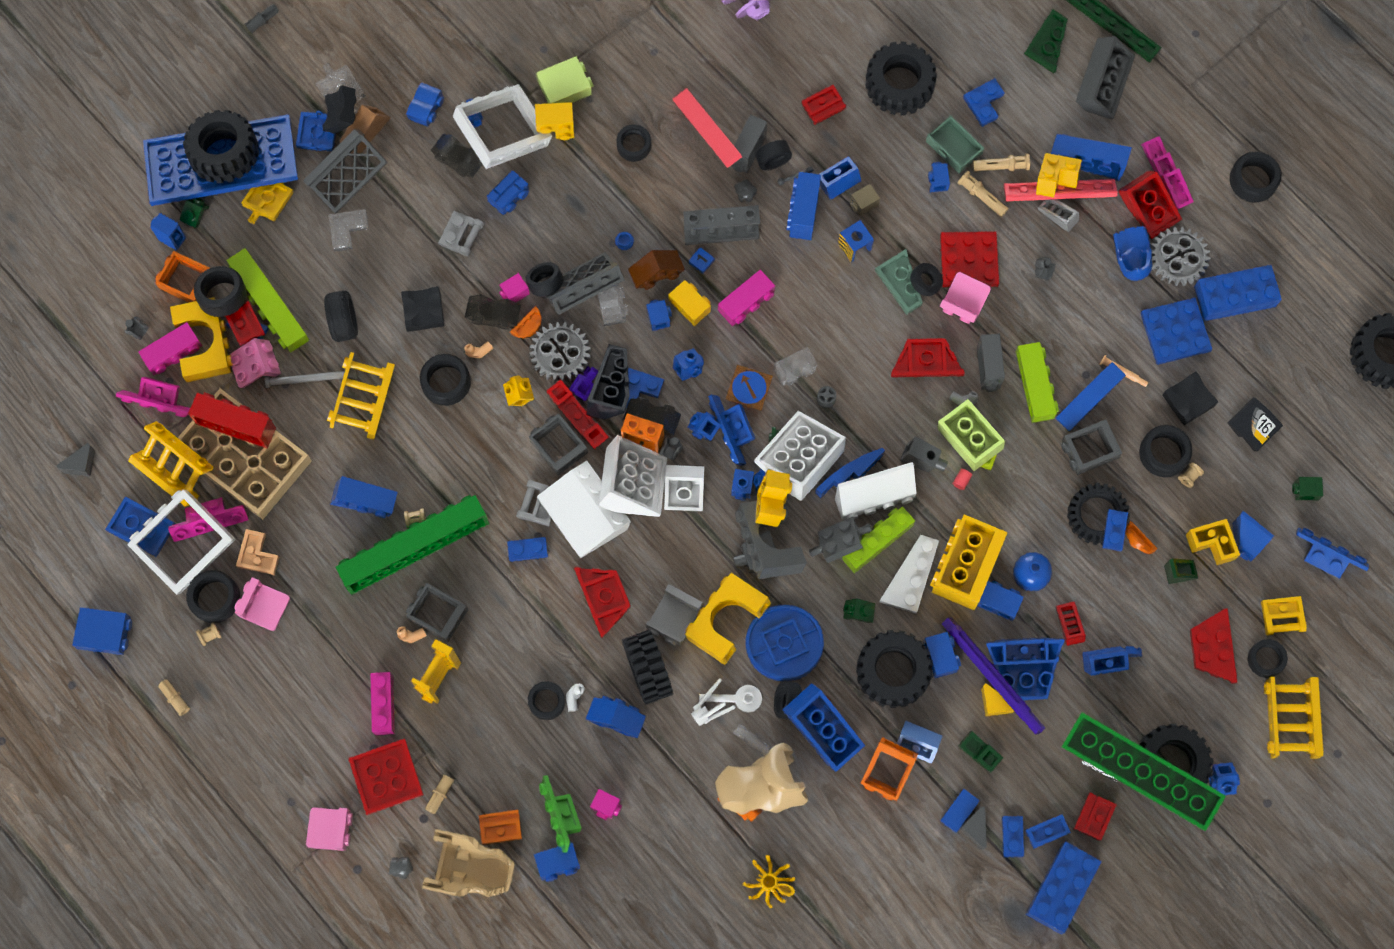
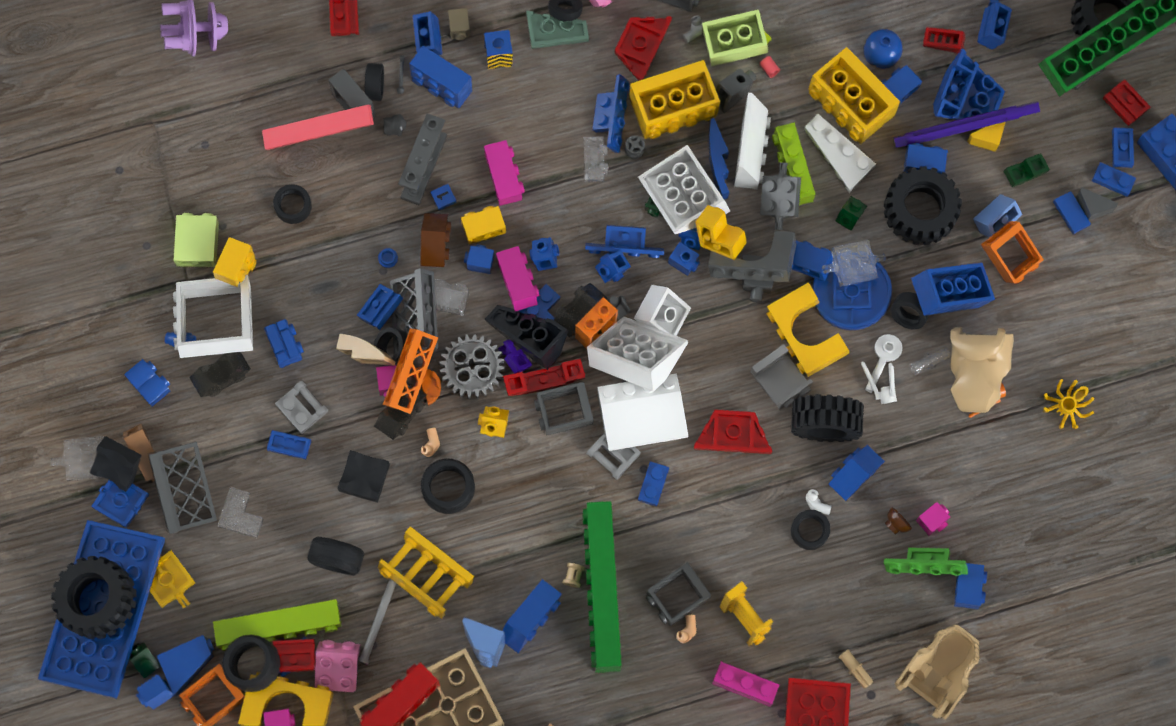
camera: 70 degrees left, 0 degrees up
(203, 244) = (185, 662): none -> blue slope
(315, 465) = (485, 642): none -> medium blue slope
(423, 238) = (289, 444): none -> blue plate
(500, 827) = (912, 625): orange plate -> none
(522, 293) = (403, 368): none -> orange fence
(529, 257) = (363, 351): none -> tan slope
(576, 253) = (380, 306): none -> blue plate
(588, 774) = (897, 522): none -> reddish brown piece
(654, 352) = (517, 278): none -> dark pink brick
(749, 387) = (593, 210): piece -> none
(793, 594) = (811, 259): none -> blue brick
(806, 630) = (854, 263): none -> clear plate
(848, 363) = (611, 112): none -> blue bracket
(884, 408) = (674, 100): none -> yellow brick

